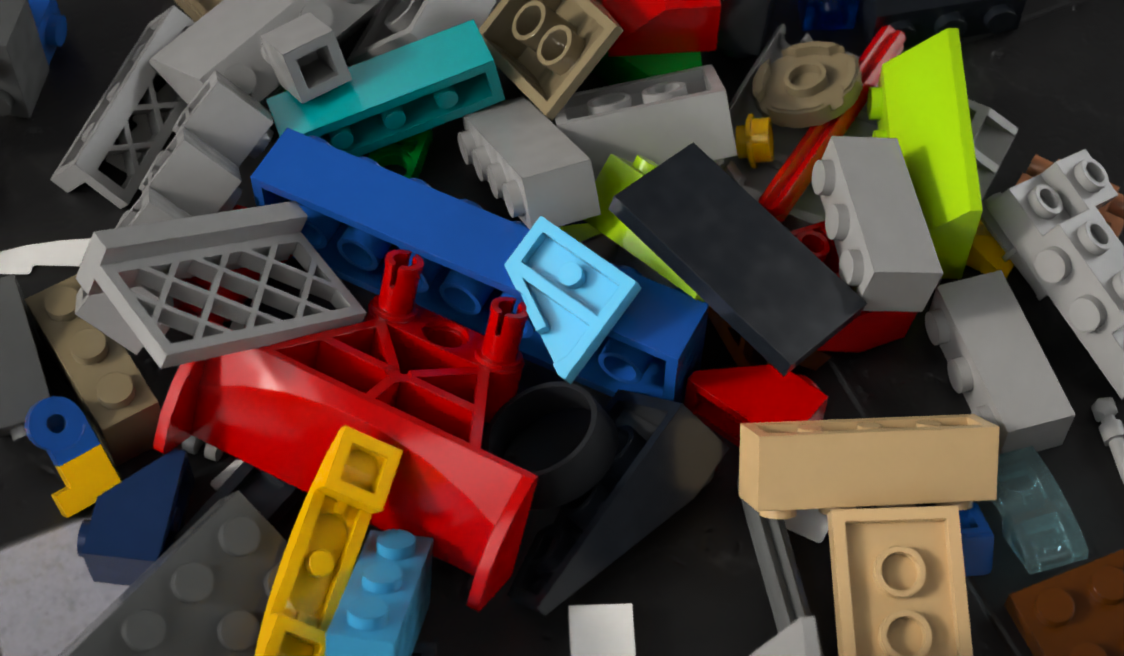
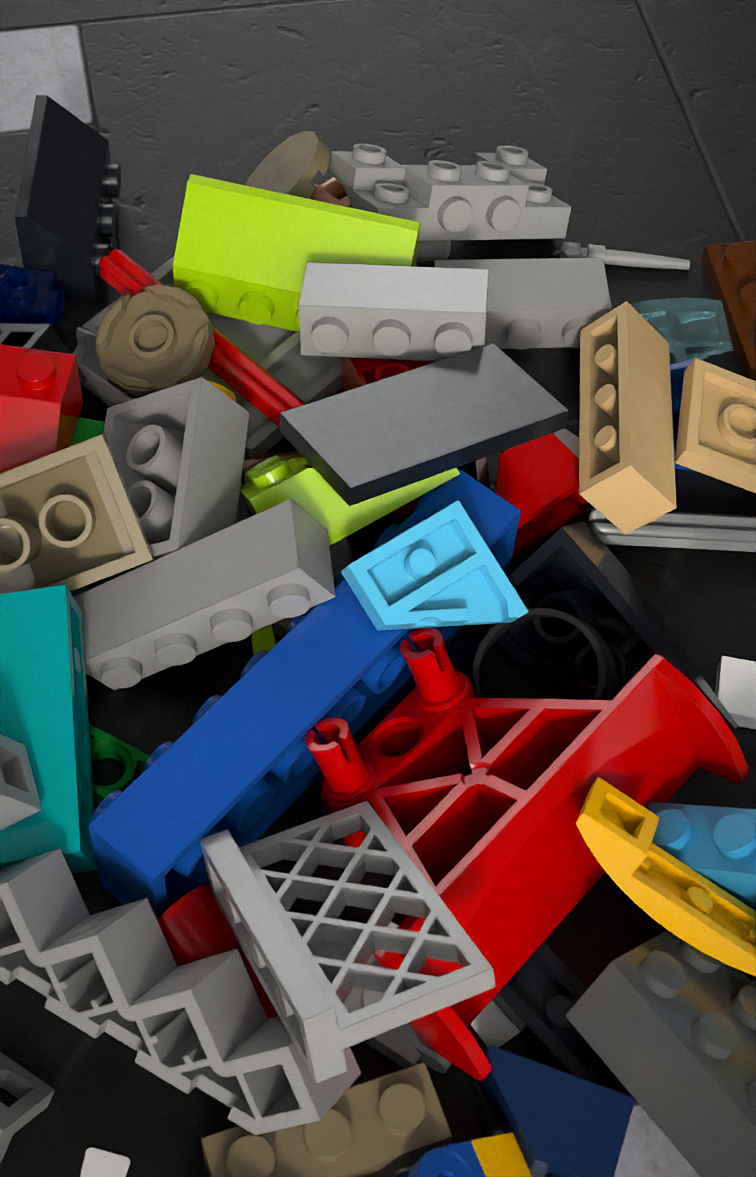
camera: 80 degrees left, 0 degrees up
(1054, 135) = (293, 165): none -> dark tan tile

